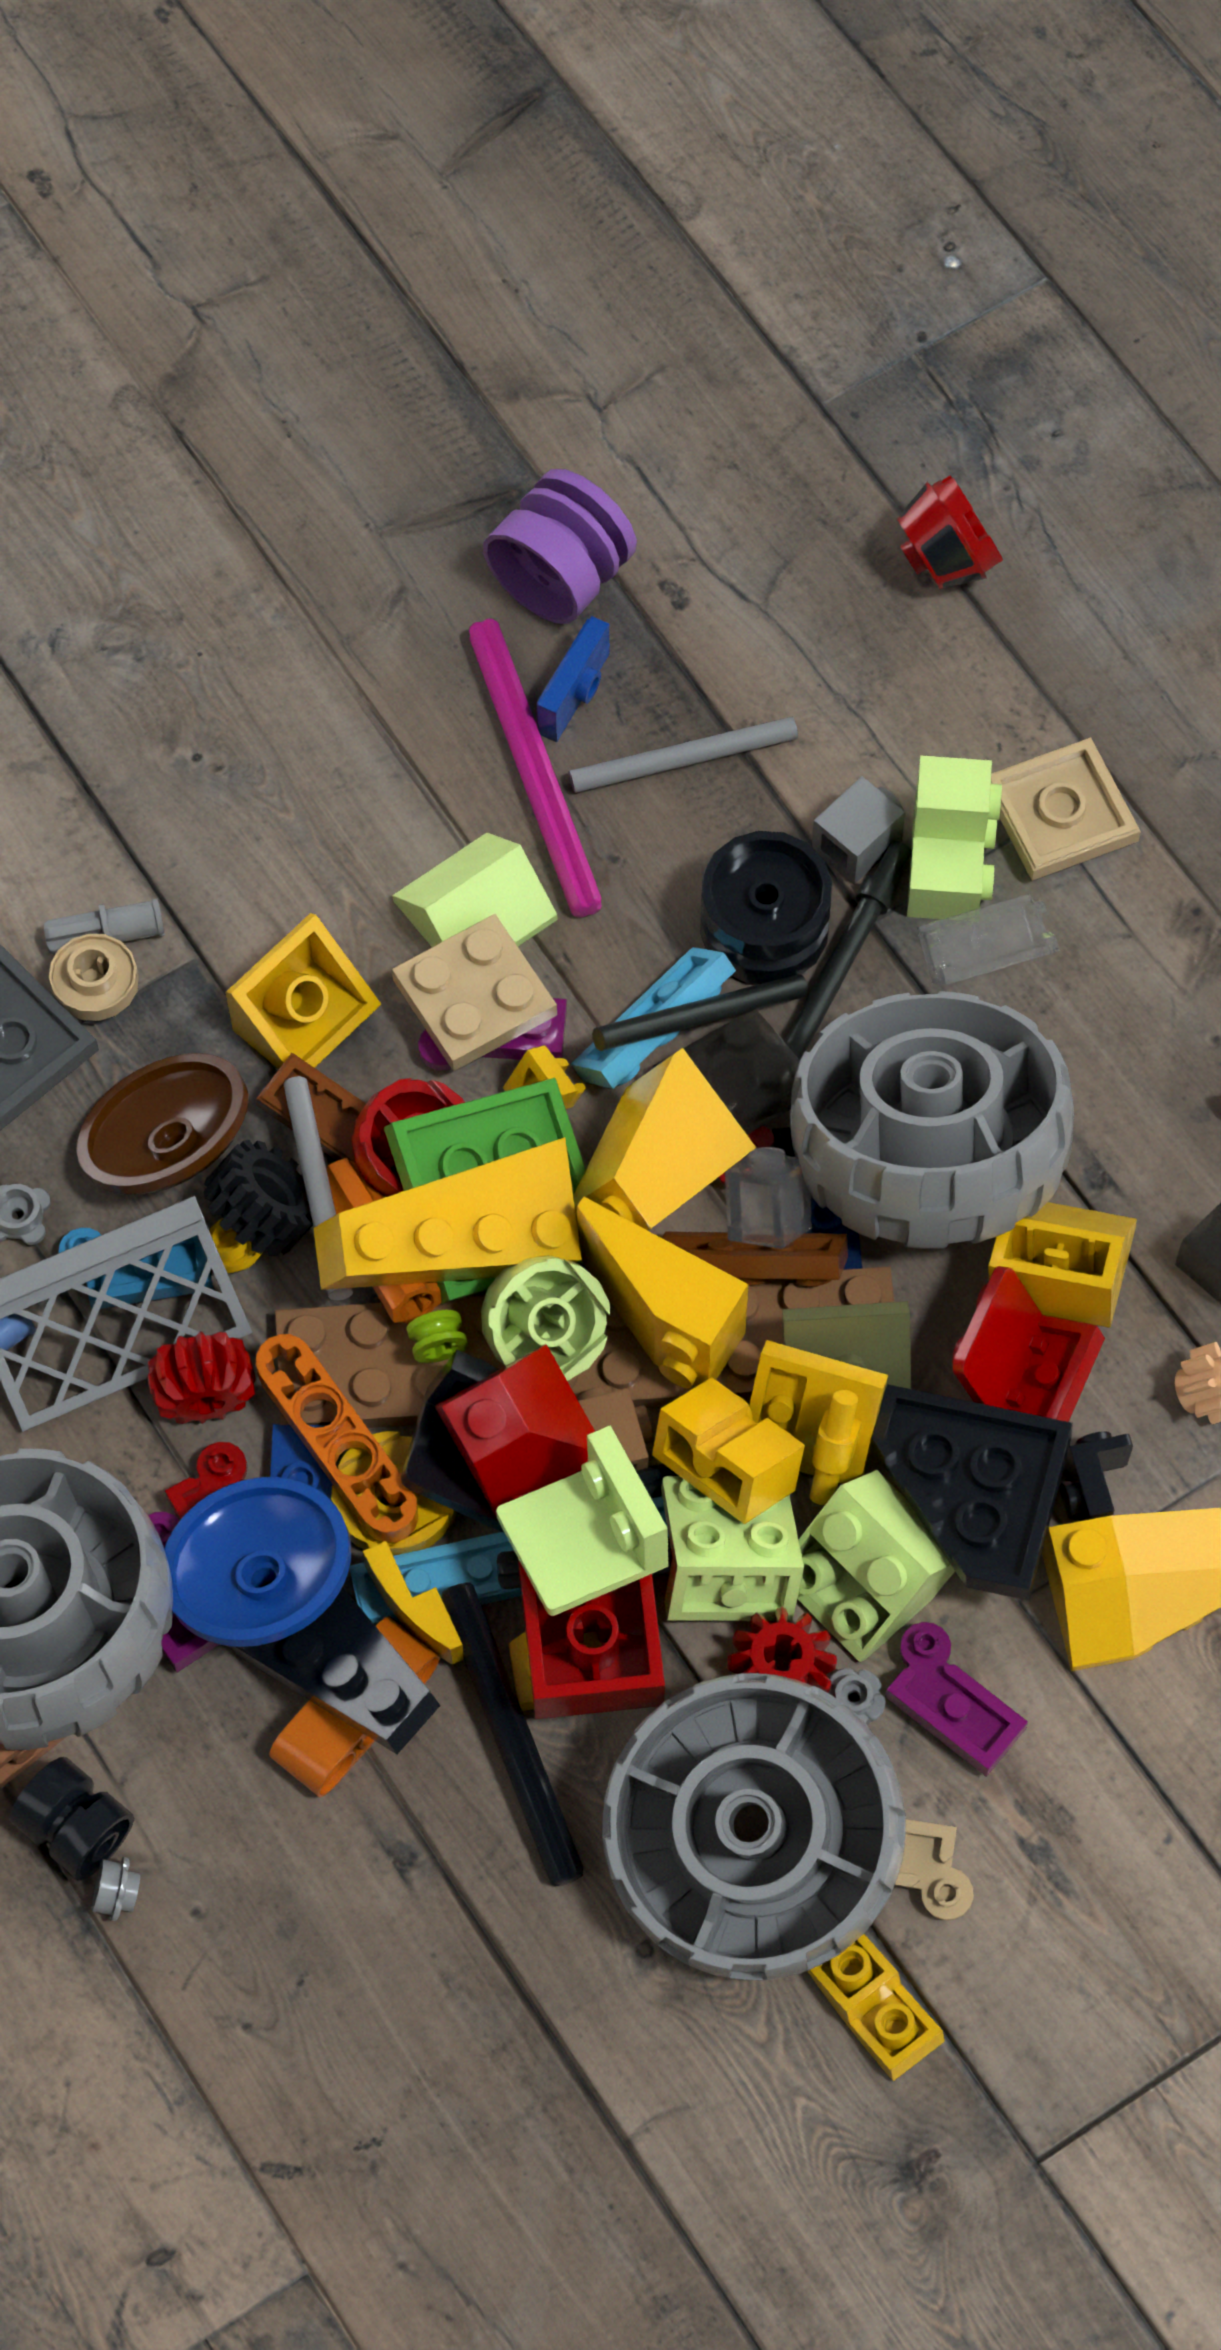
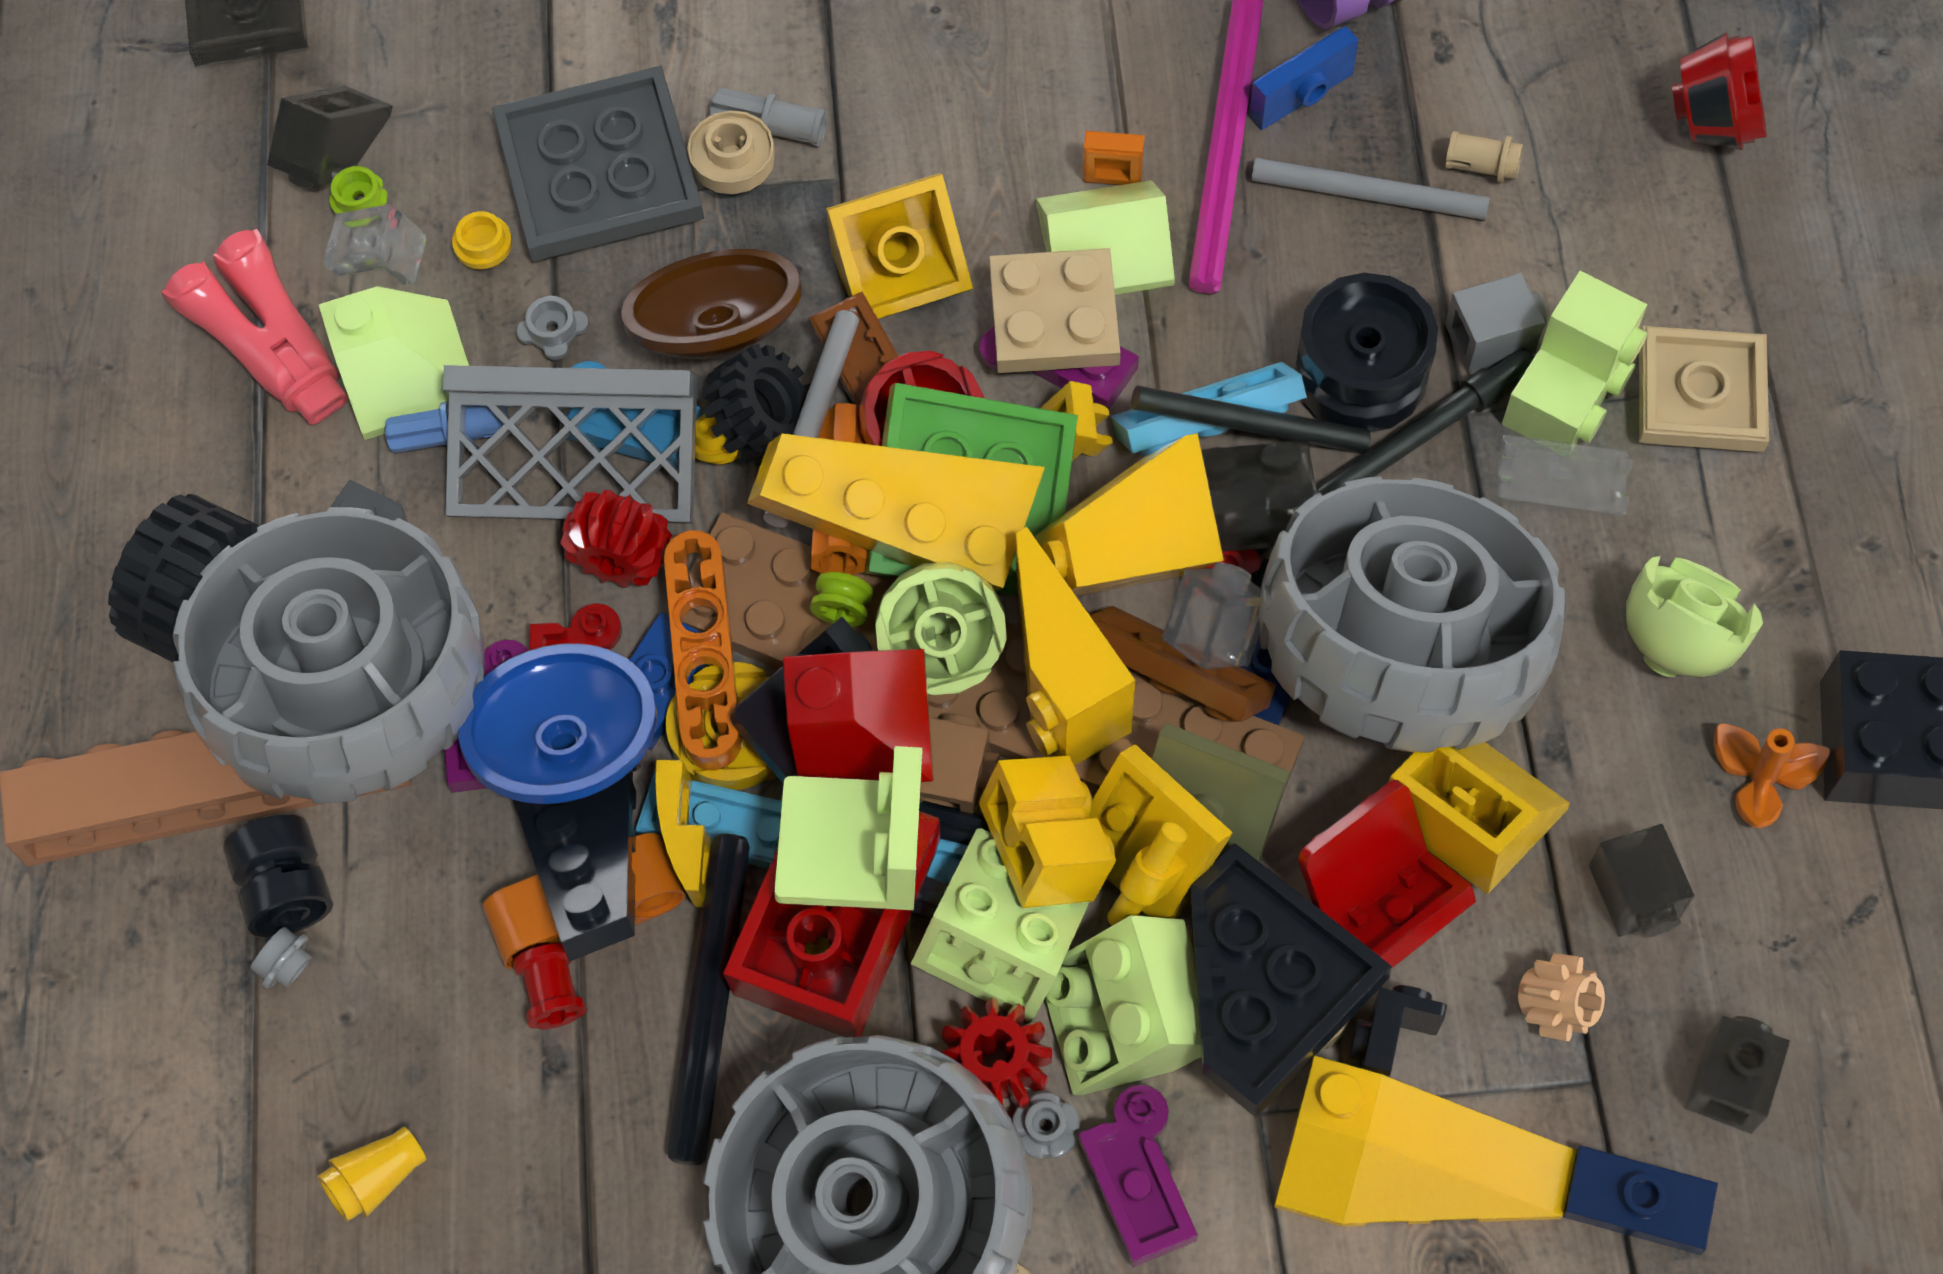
camera: 30 degrees right, 0 degrees up
(304, 2029) = (368, 1174): none -> yellow cone
(367, 1793) = (548, 987): none -> red bush
(445, 828) = (1113, 158): none -> orange tile
(769, 680) = (1484, 155): none -> tan pin
(1155, 1017) = (1688, 619): none -> yellowish green cylinder

